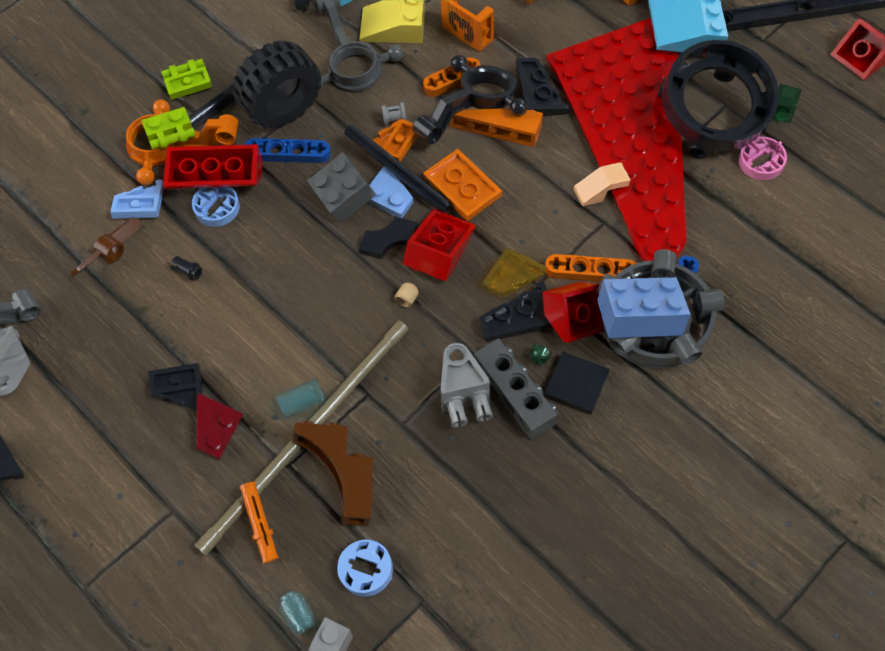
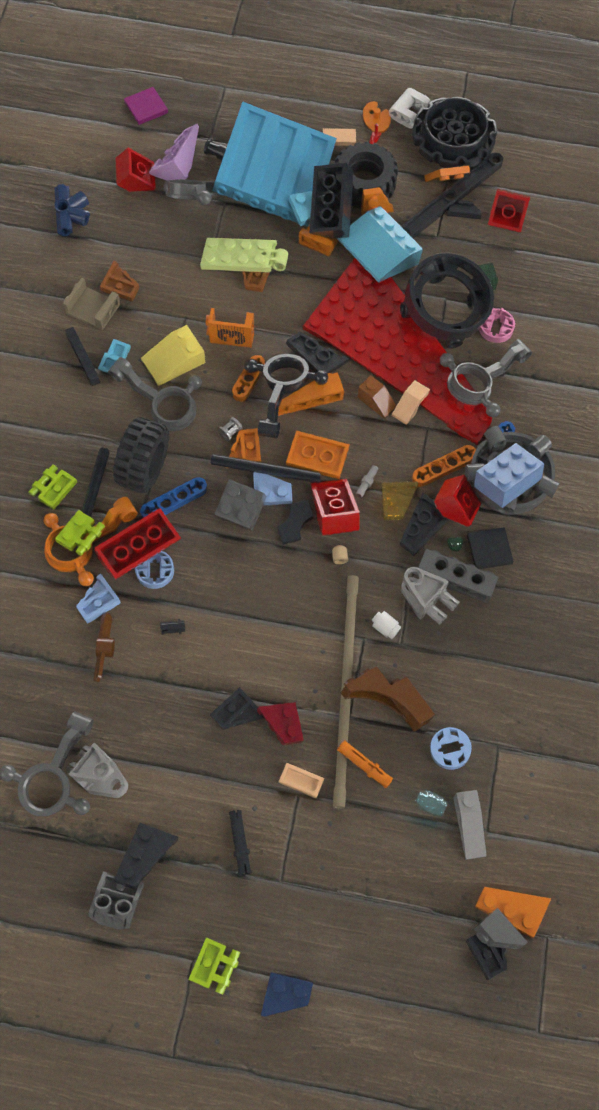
camera: 40 degrees left, 5 degrees up
(68, 528) = (241, 851): none -> black pin
(186, 498) = (301, 780): none -> light nougat tile
(300, 398) = (325, 668): clear light blue piece -> none
(398, 393) = (386, 624): none -> white brick
(494, 238) = (366, 481): none -> light grey bar
(568, 159) = (376, 397): none -> dark orange slope
(760, 192) = (516, 351): none -> dark grey piece
(813, 27) = (464, 209): none -> black tile

